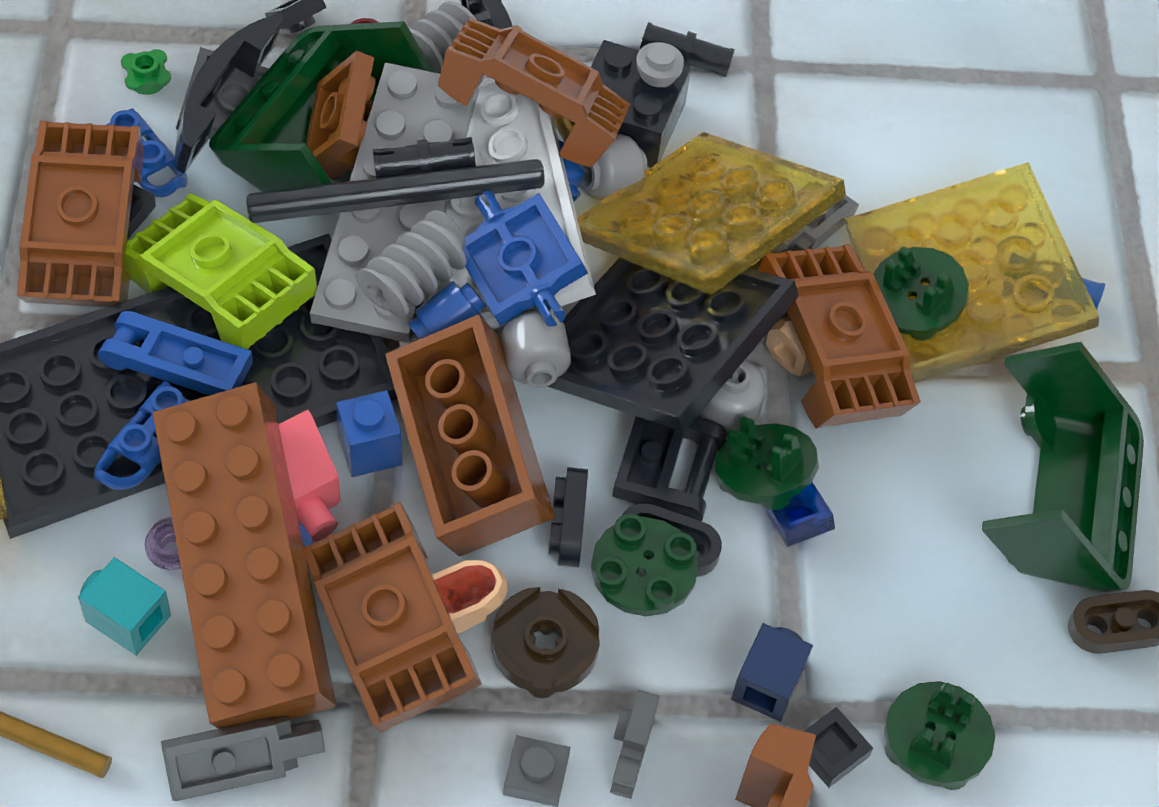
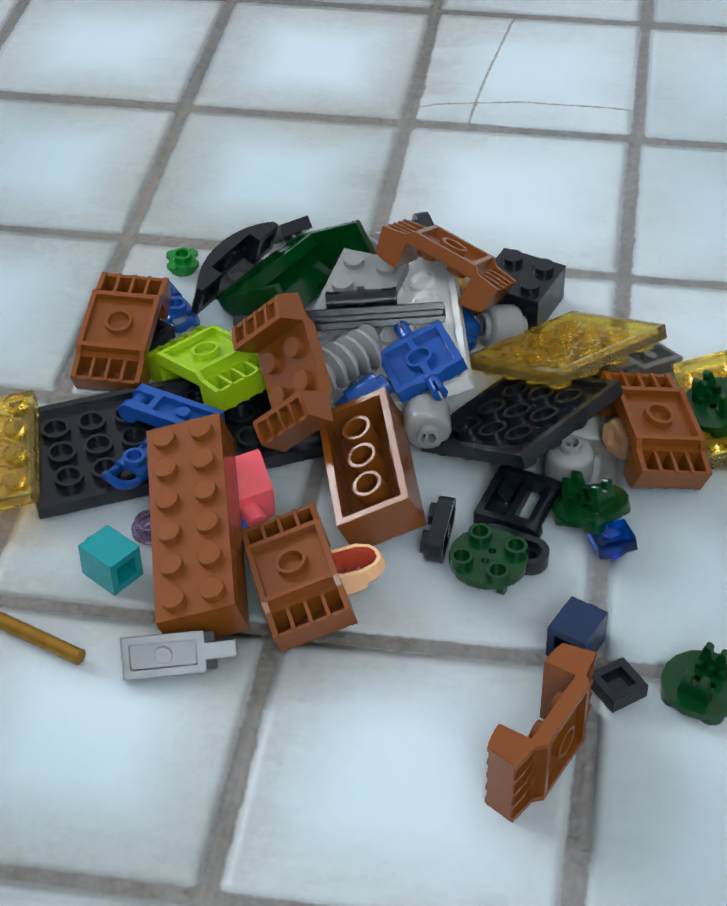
camera: 15 degrees right, 15 degrees down
(341, 114) = (314, 272): dark orange plate -> none
(344, 295) = (290, 368): none -> dark orange plate
(369, 433) = (300, 470): blue brick -> none
(536, 771) = (391, 684): dark grey plate -> none
(538, 669) = (413, 621): dark brown plate -> none
(634, 731) = (467, 664): dark grey plate -> none
(659, 64) = (540, 258): light grey plate -> none
(694, 50) = (574, 264): black pin -> none

